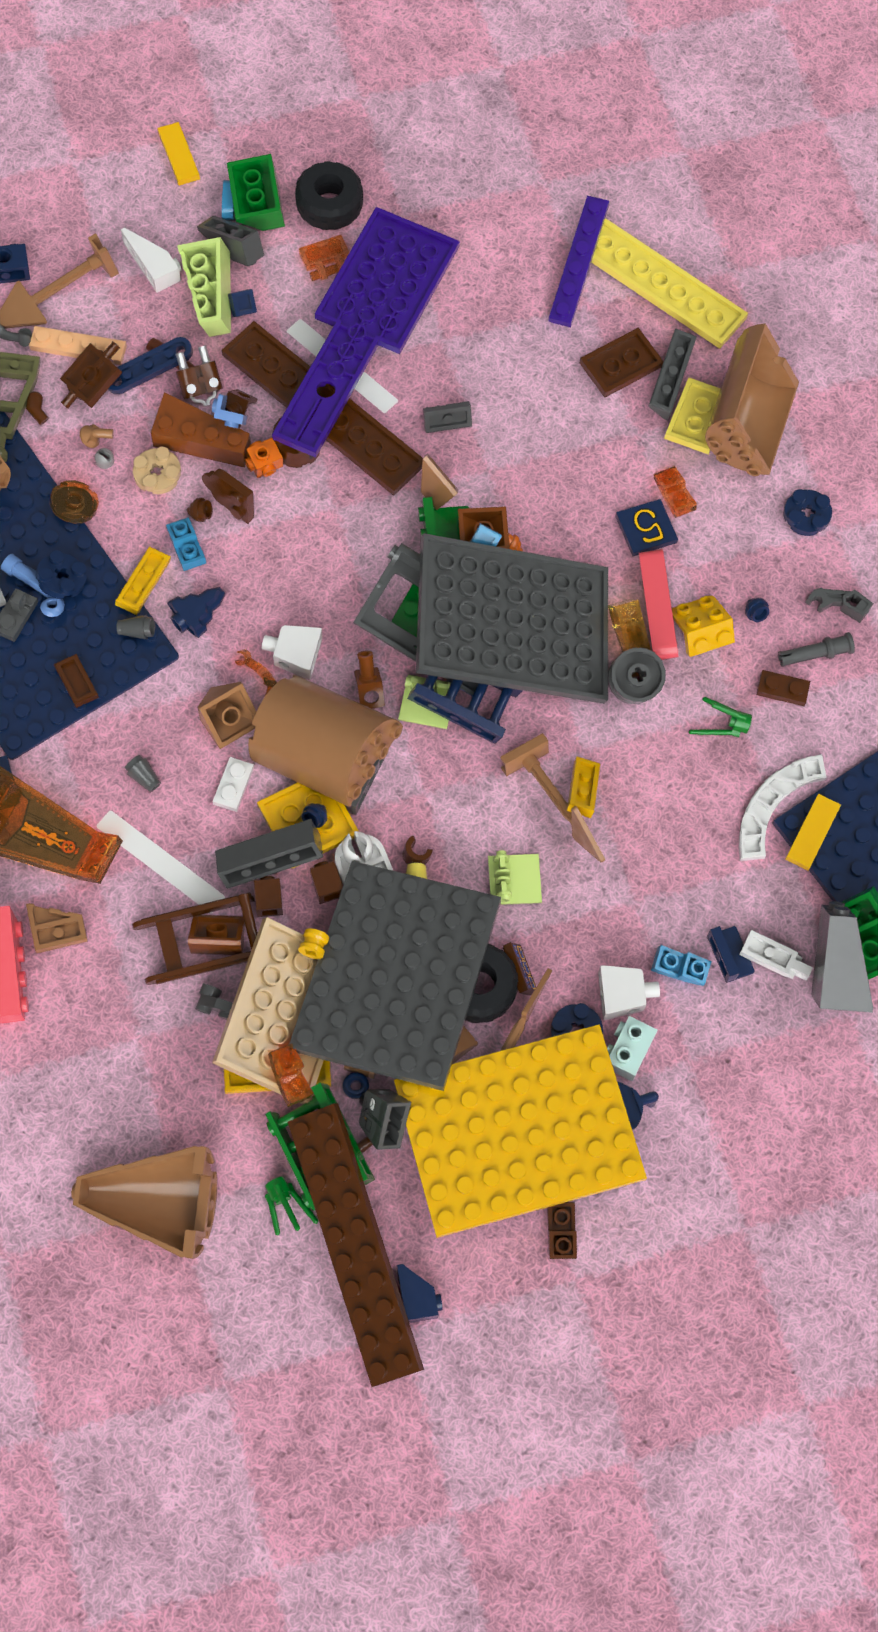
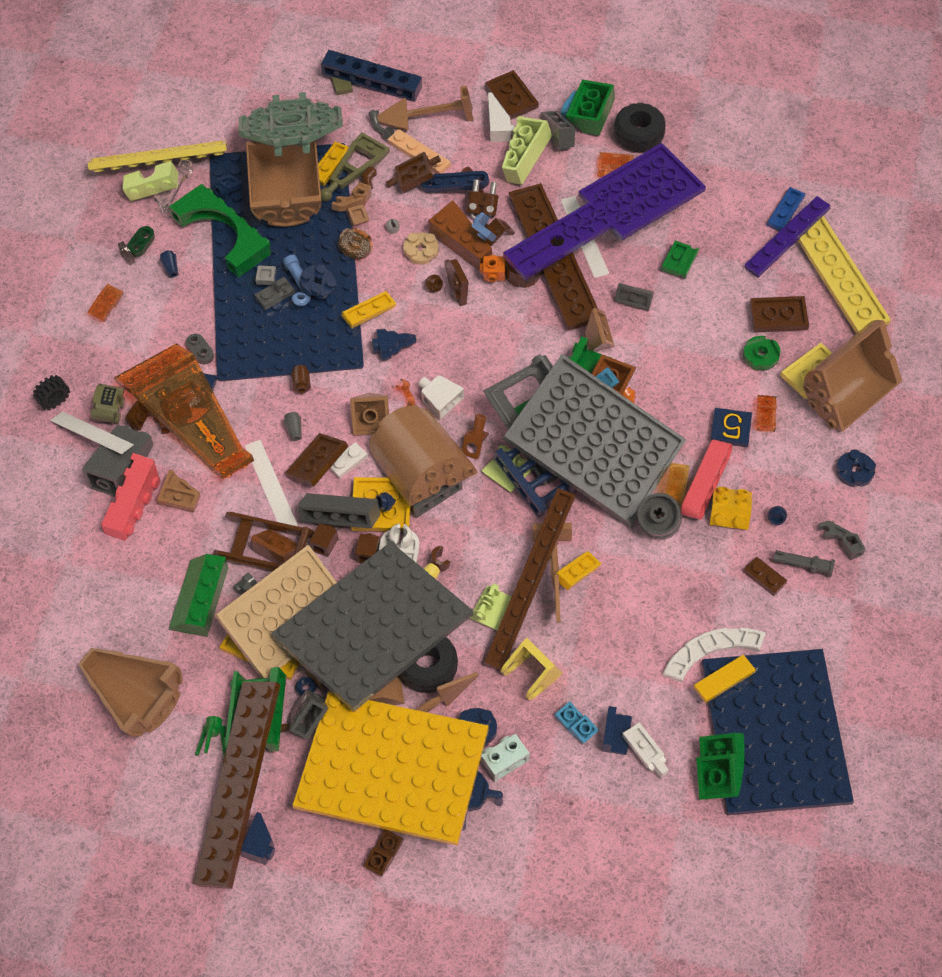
camera: 35 degrees right, 10 degrees down
(40, 441) = (360, 195): none -> medium nougat piece
(53, 463) = (357, 215): none -> medium nougat plate
(76, 680) = (287, 349): reddish brown tile -> none
(91, 435) = (393, 208): medium nougat plate -> none
(115, 710) = (300, 379): none -> reddish brown brick
(137, 627) = (345, 334): dark grey cone -> none
(147, 217) = (512, 94): none -> reddish brown plate
(160, 1042) = (199, 595): none -> green slope
(178, 153) = (557, 64): yellow tile -> none
(186, 544) = (411, 300): dark azure slope -> none
(199, 802) = (316, 459): none -> reddish brown plate
(242, 302) = (540, 169): dark blue plate -> none
(288, 1075) = (261, 652): clear orange slope -> none
(313, 943) = (329, 577): yellow wheel -> none
(471, 345) = (680, 259): none -> green plate
(525, 980) = (463, 664): tile -> none
(538, 825) = (529, 579): none -> reddish brown plate
(554, 227) = (786, 209): none -> blue tile
(589, 907) = (521, 654): none -> light yellow hose
(624, 991) = (524, 718): white torso -> none
(628, 432) = (758, 361): none -> green plate
(672, 373) = (810, 335): dark grey slope -> none
(738, 721) = (717, 581): green plant -> none
(840, 967) = (684, 774): slope -> none

